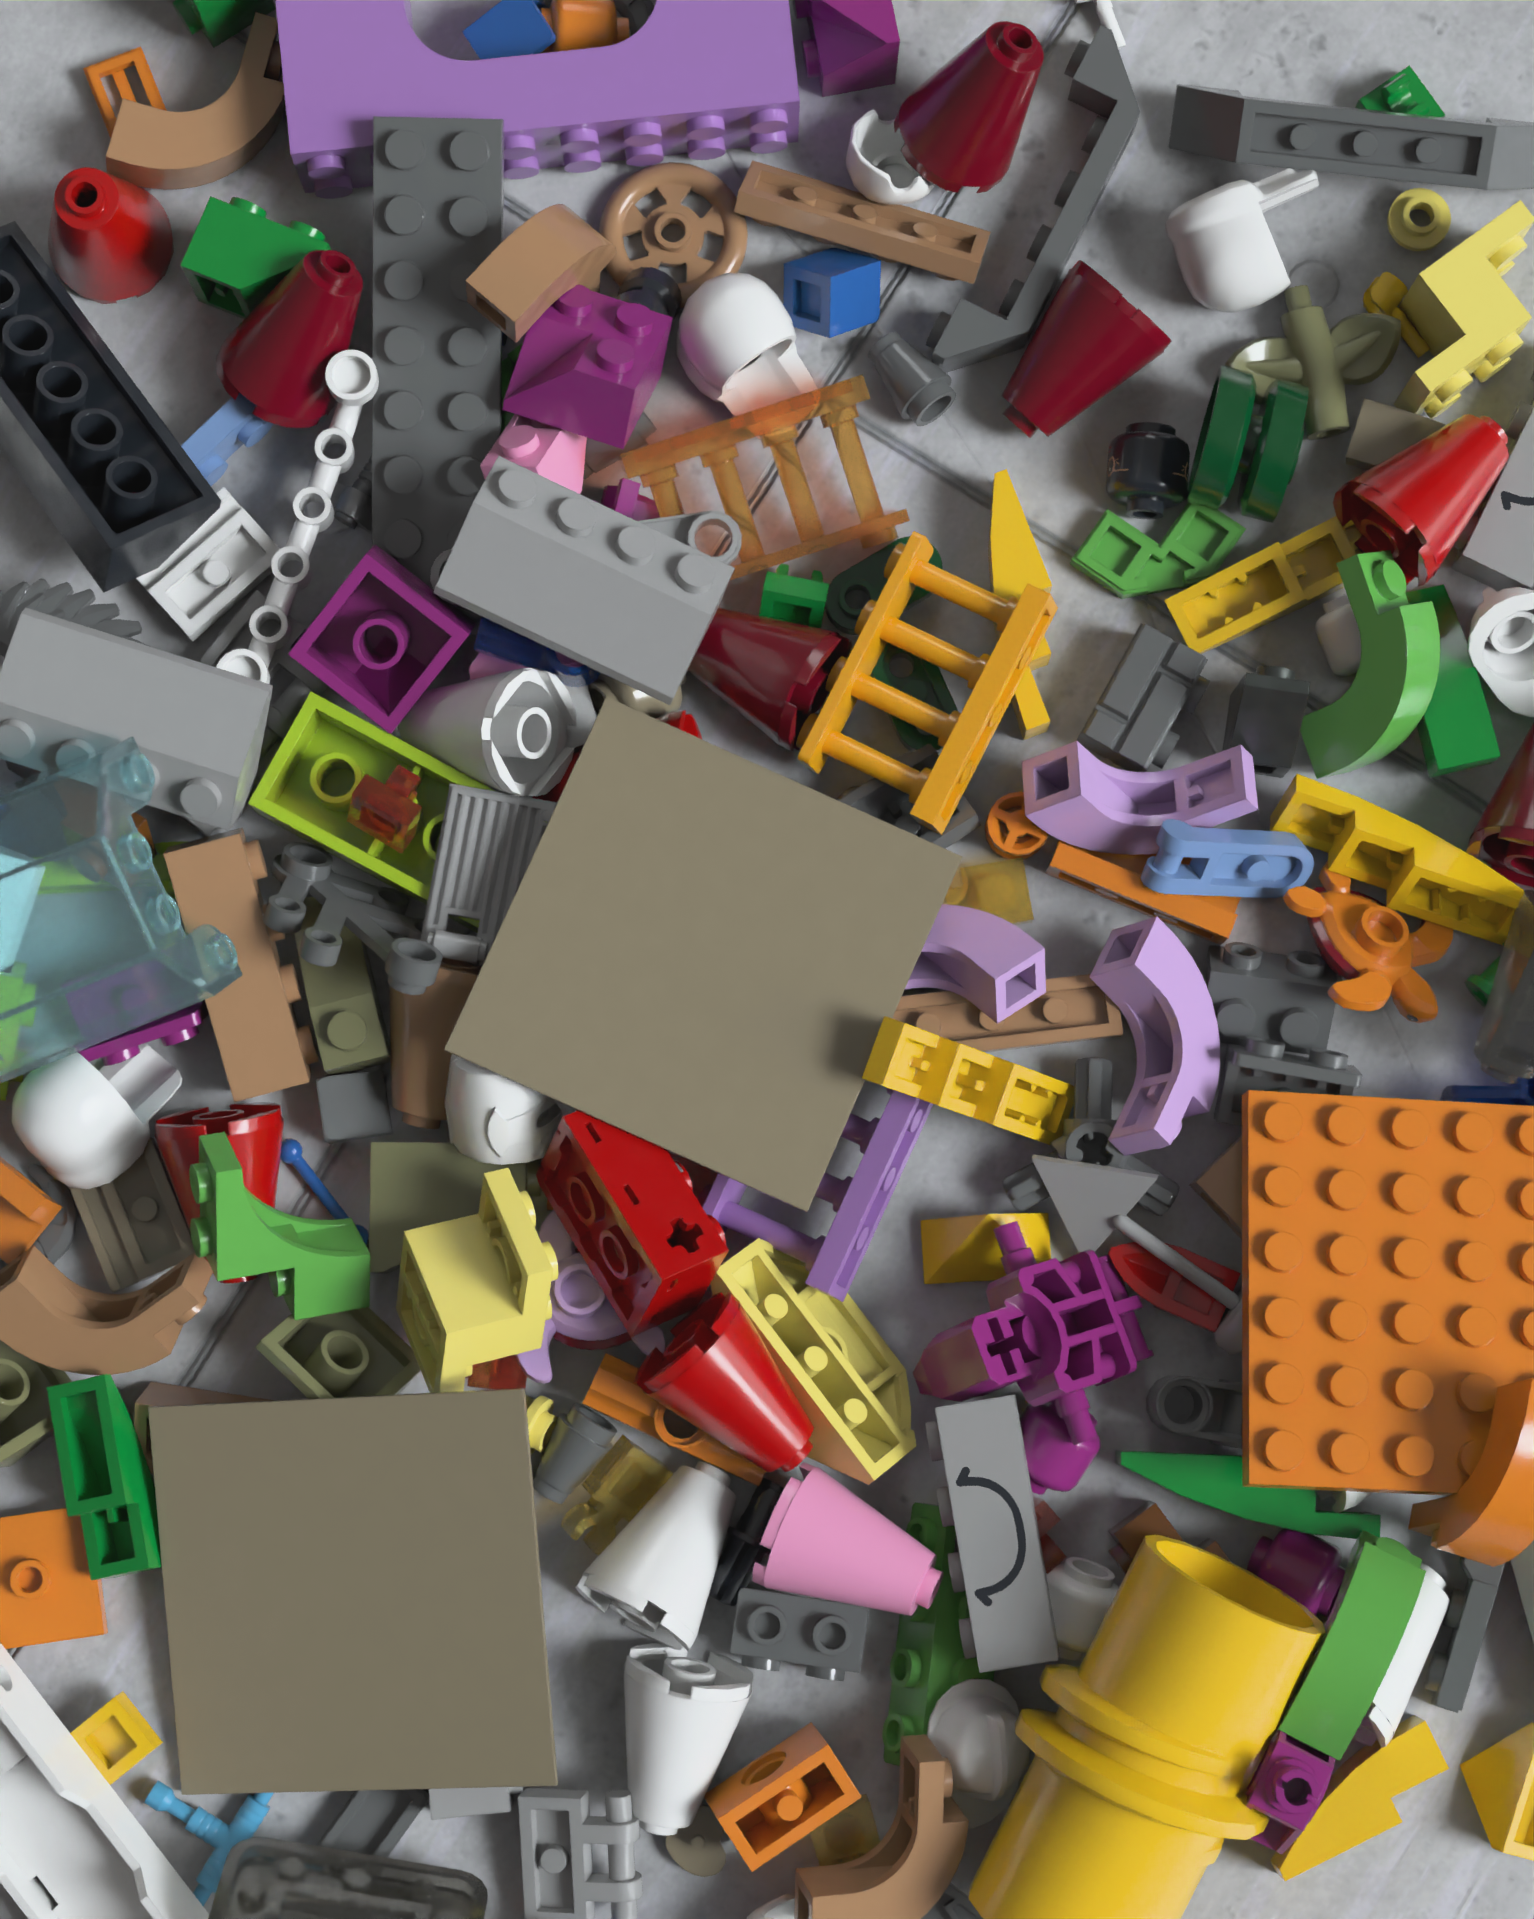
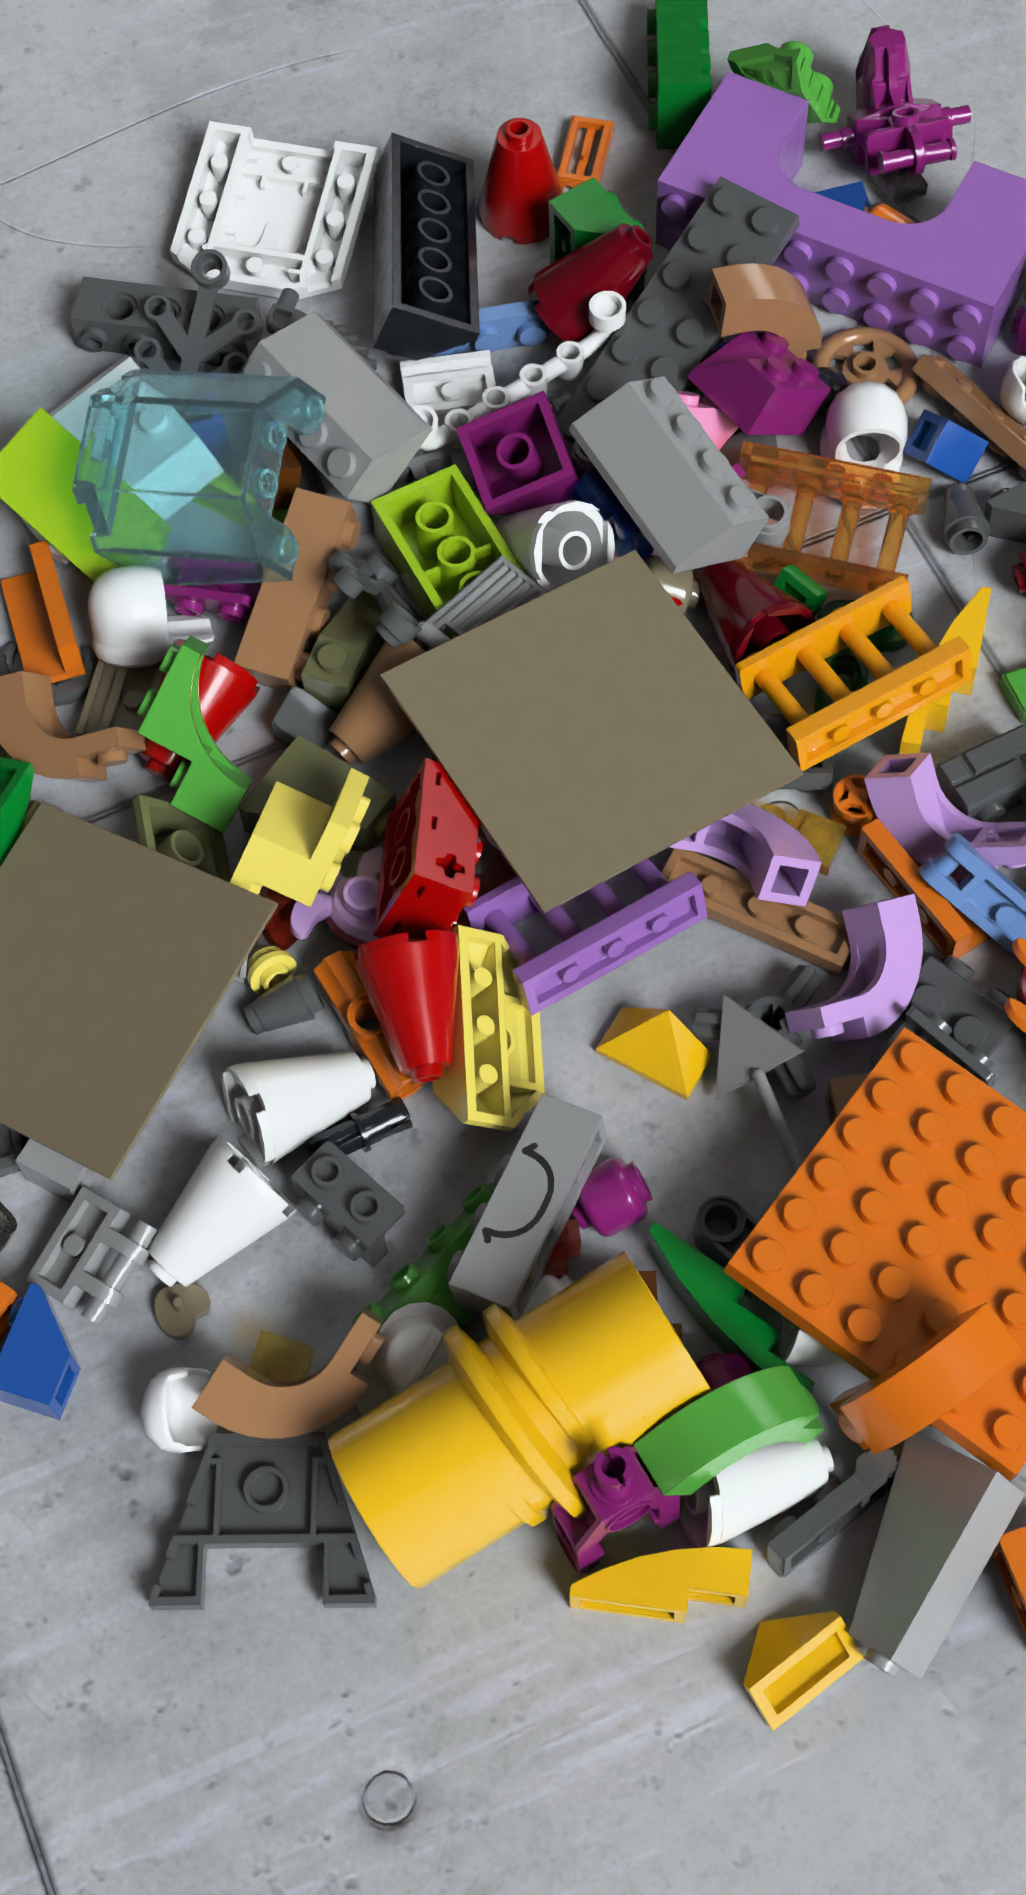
camera: 40 degrees right, 20 degrees down
(209, 143) = (630, 175): medium nougat arch -> none
(292, 1154) = (247, 728): blue hinge -> none
(388, 808) = (451, 539): clear red tile -> none
(497, 1117) = (389, 749): white helmet -> none
(618, 1490) = (298, 1037): clear yellow plate -> none
(782, 1796) = (255, 1301): orange brick -> none
(843, 1550) = (412, 1155): bright pink cone -> none
(969, 1081) = (711, 911): yellow slope -> none
(1047, 1330) = (657, 1110): magenta piece -> none
(1169, 1289) = (762, 1144): red plate -> none

